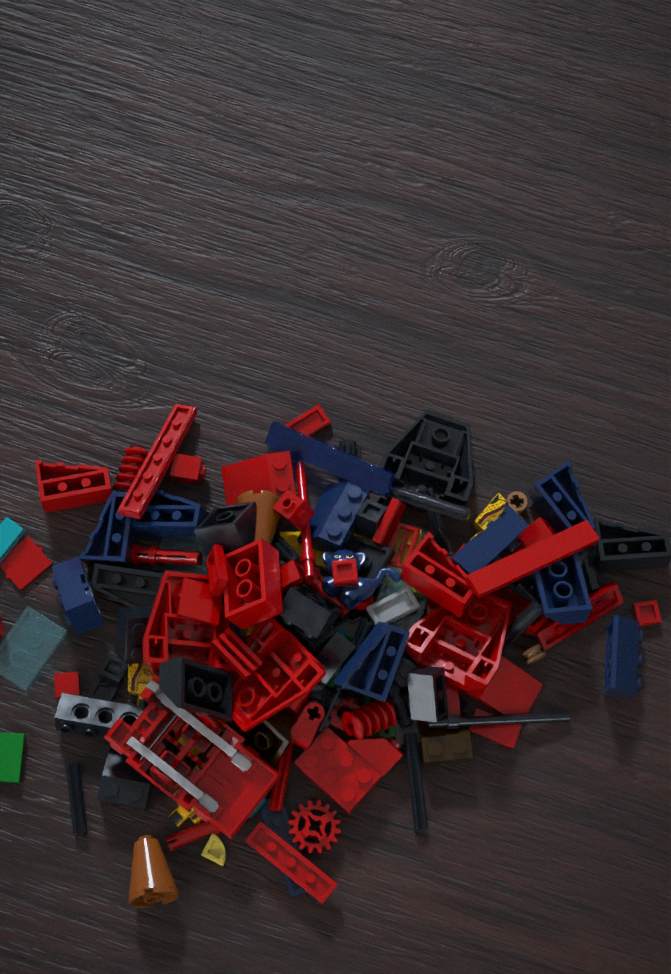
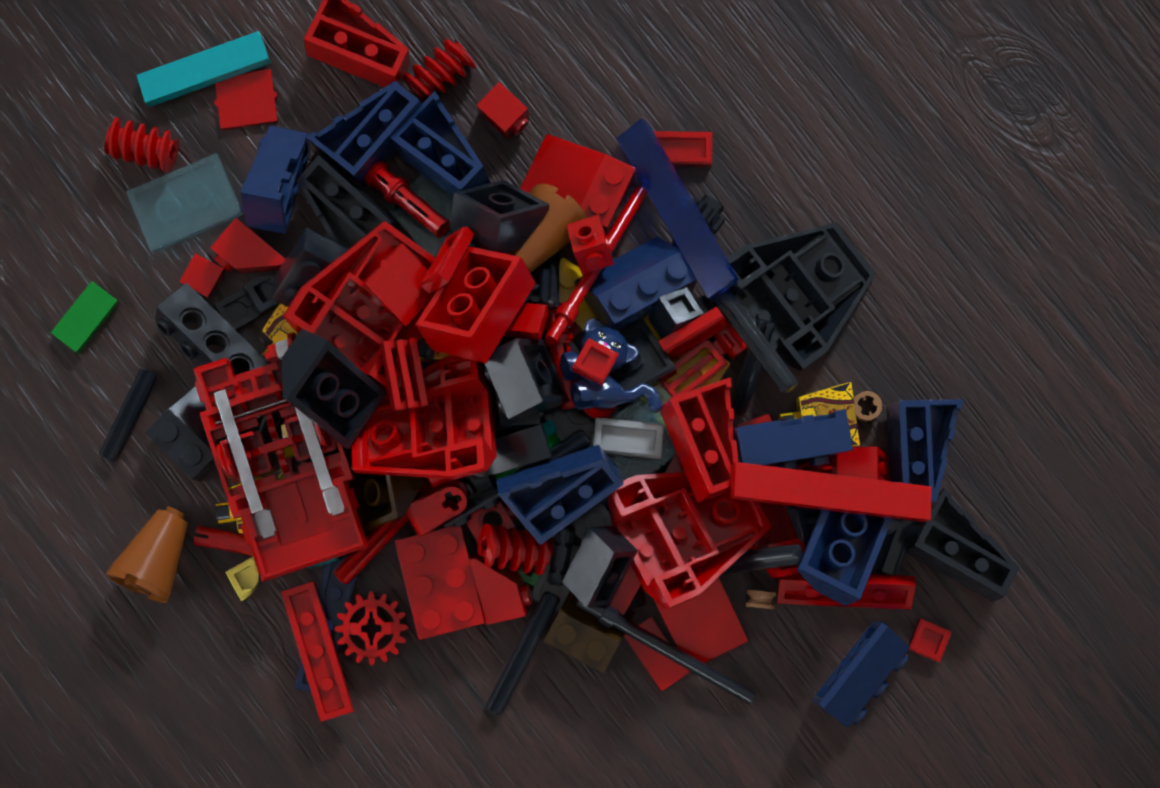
camera: 40 degrees right, 10 degrees up
(86, 651) = (245, 251): none -> red slope
(157, 461) = (472, 79): red tile -> none
(413, 515) = (729, 342): none -> red gear

